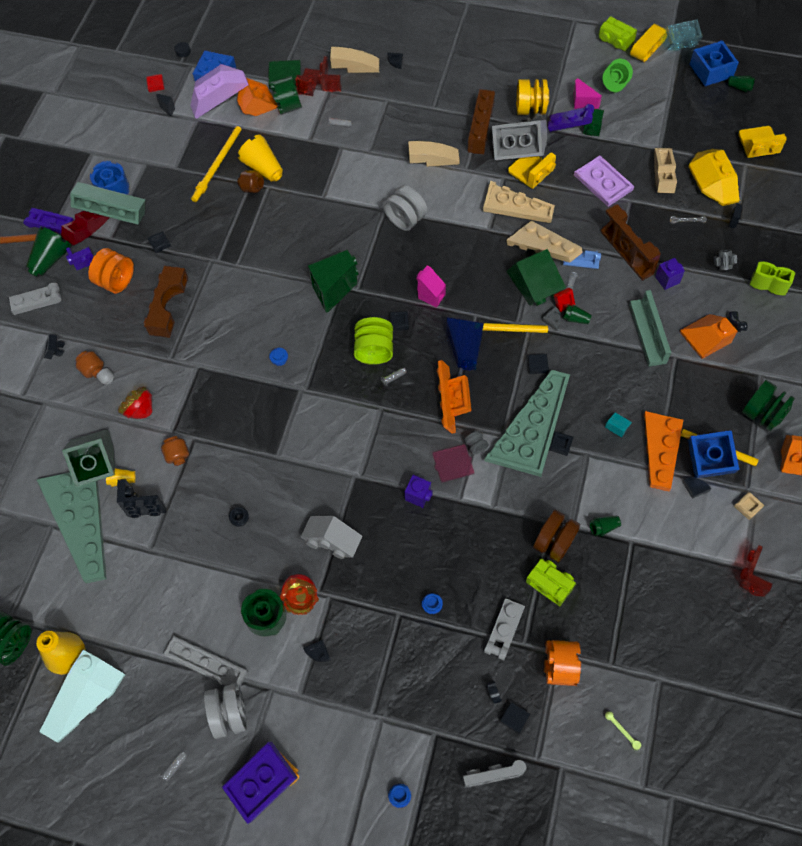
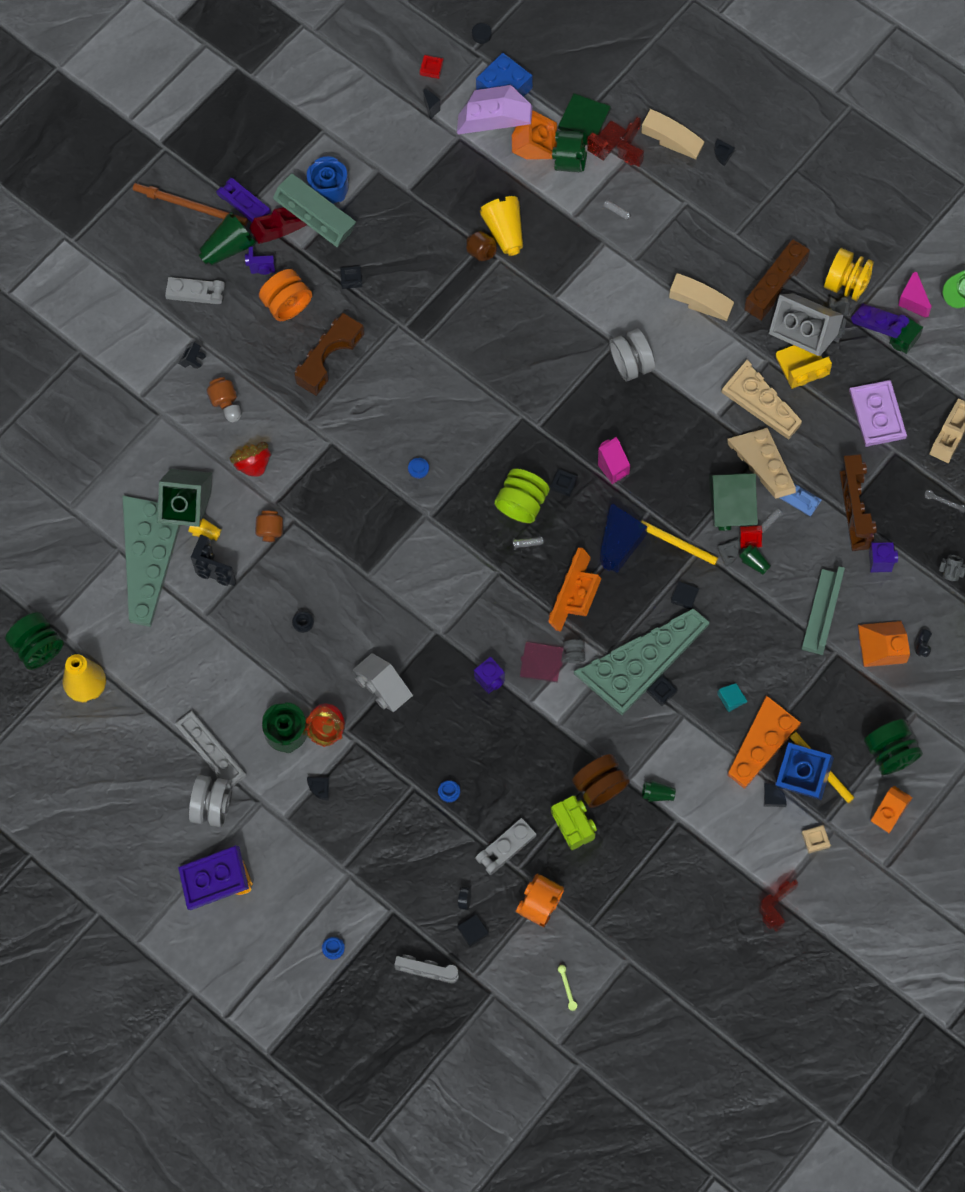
camera: 25 degrees right, 5 degrees up
(84, 688) = (89, 724): light aqua wedge -> none
(173, 767) = (143, 830): clear piece -> none
(202, 185) = (426, 228): yellow bar -> none
(333, 278) = (515, 406): dark green slope -> none

